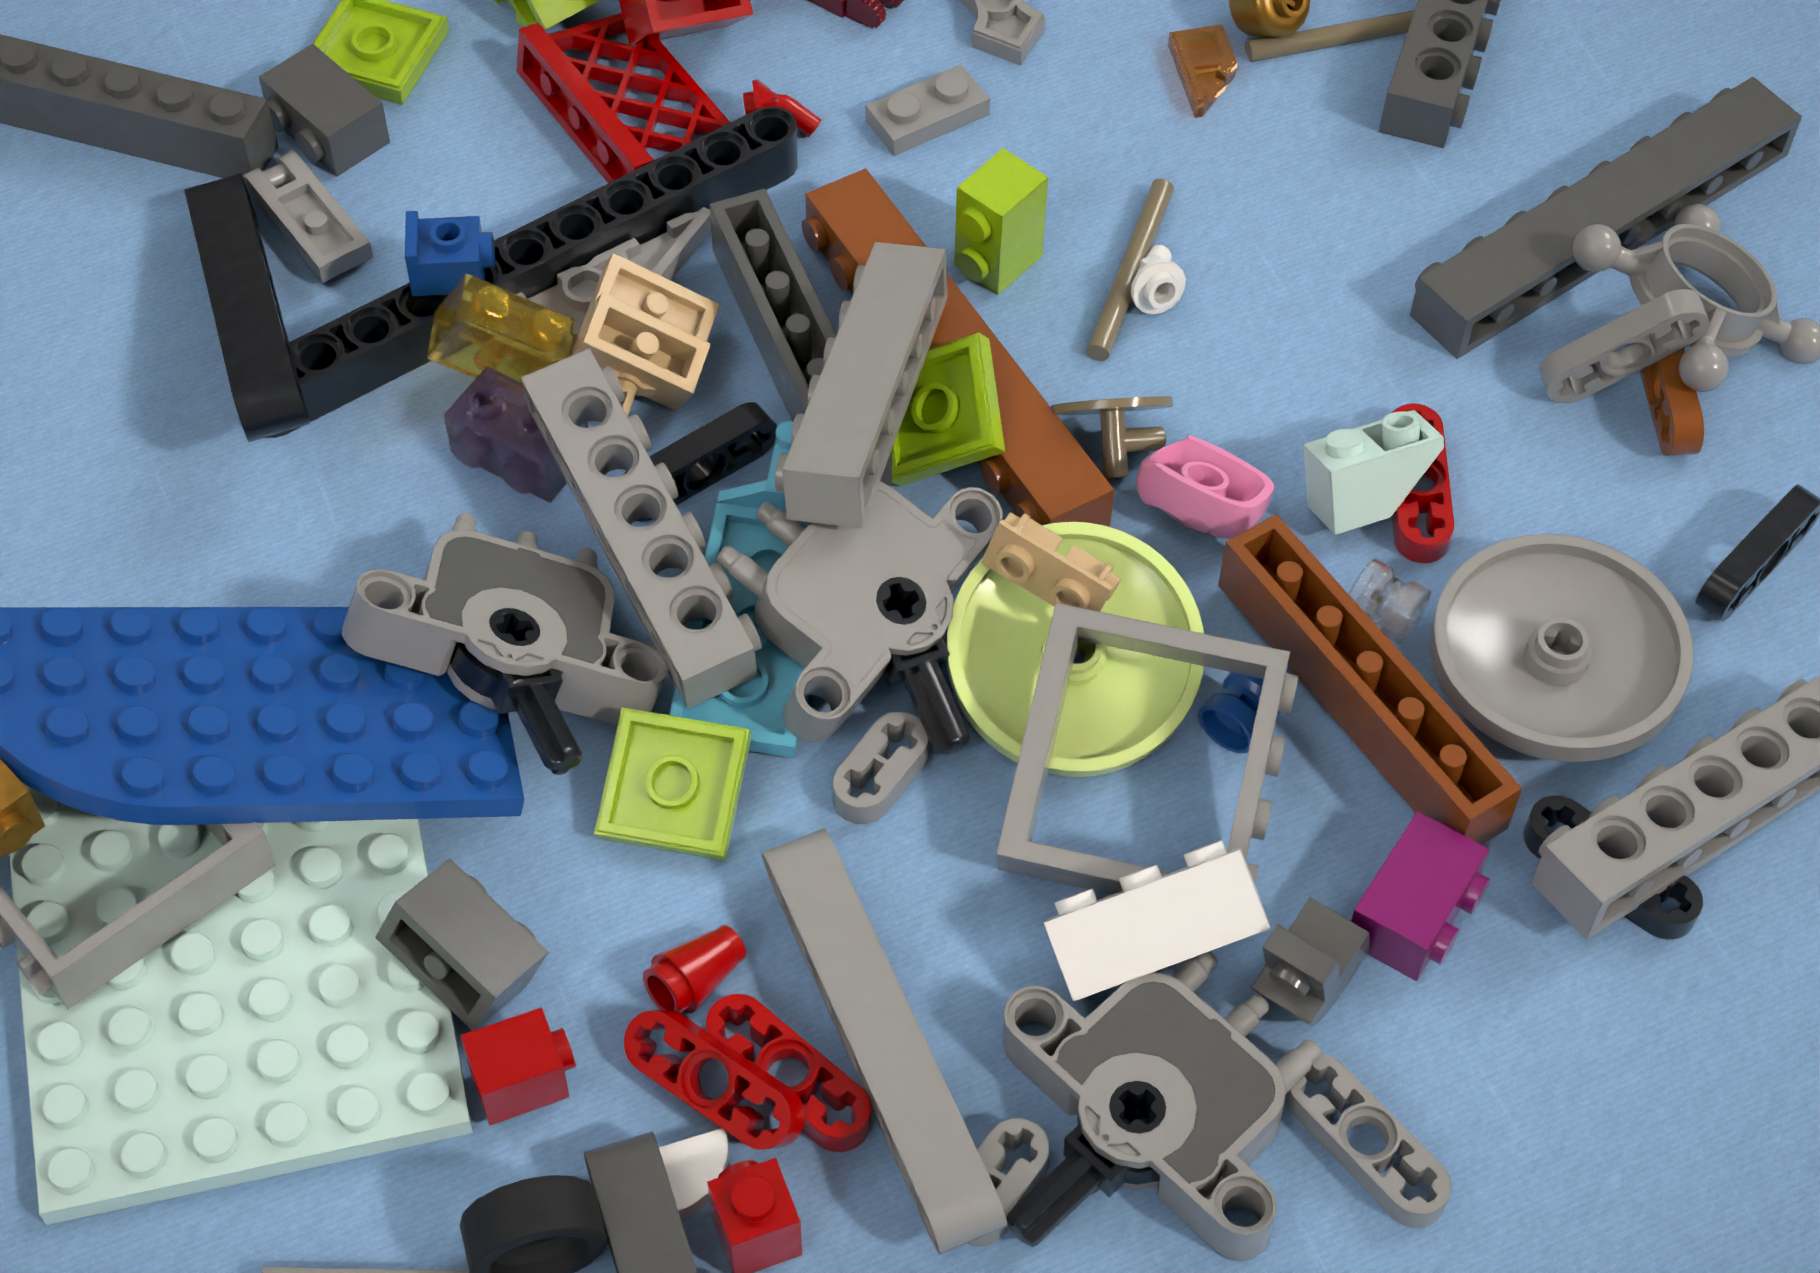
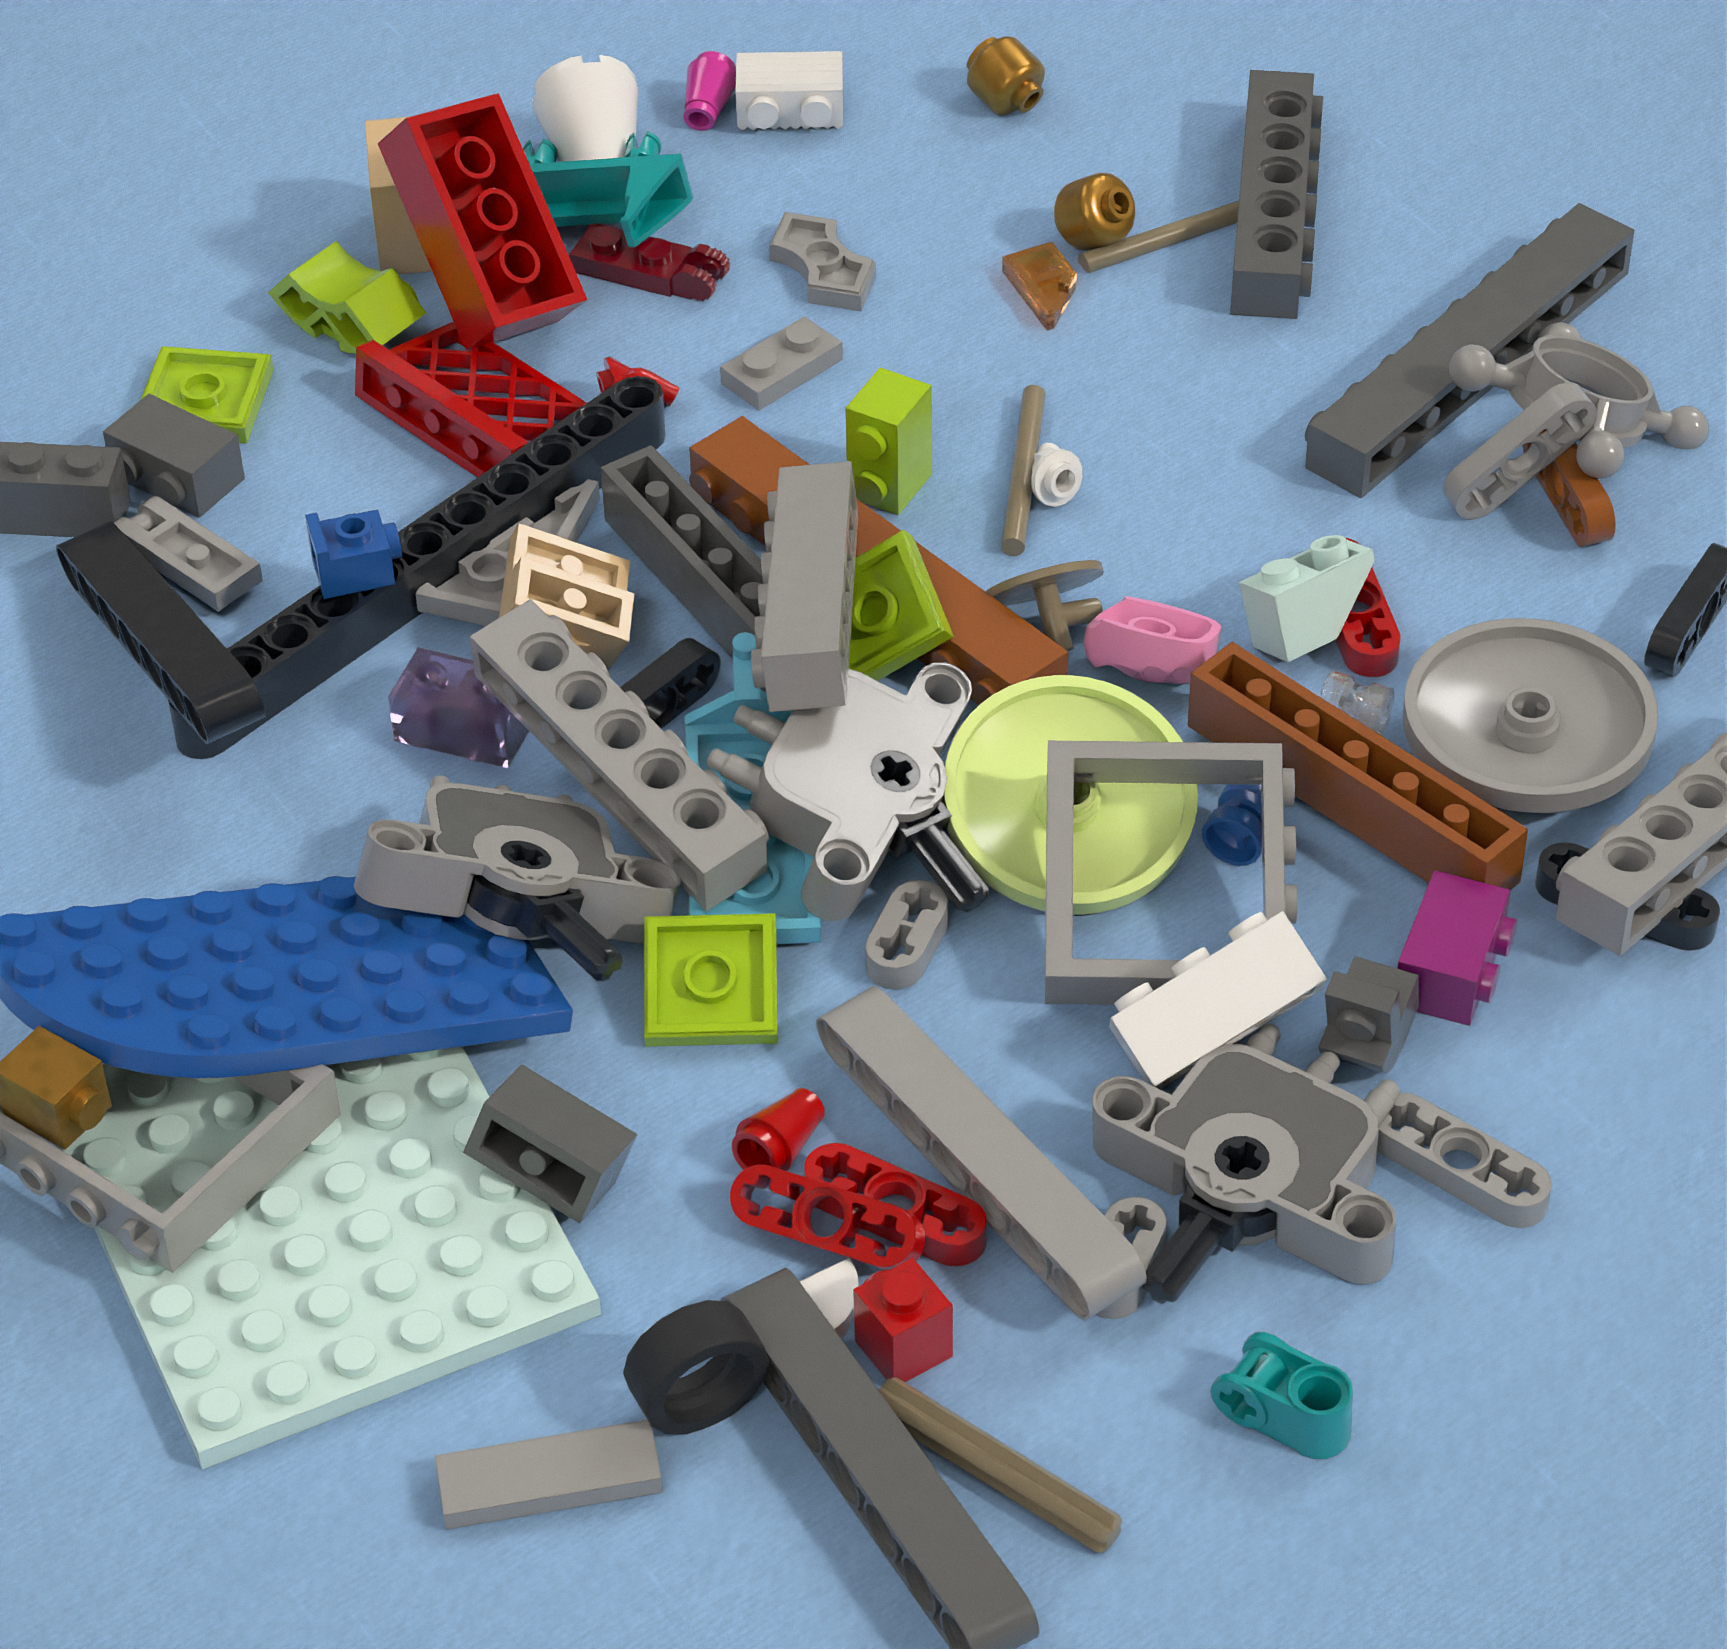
camera: 10 degrees left, 10 degrees down
(498, 330) = (416, 608): clear yellow brick -> none
(518, 1065) = (634, 1237): red brick -> none
(1028, 556) = (1024, 720): tan hinge -> none

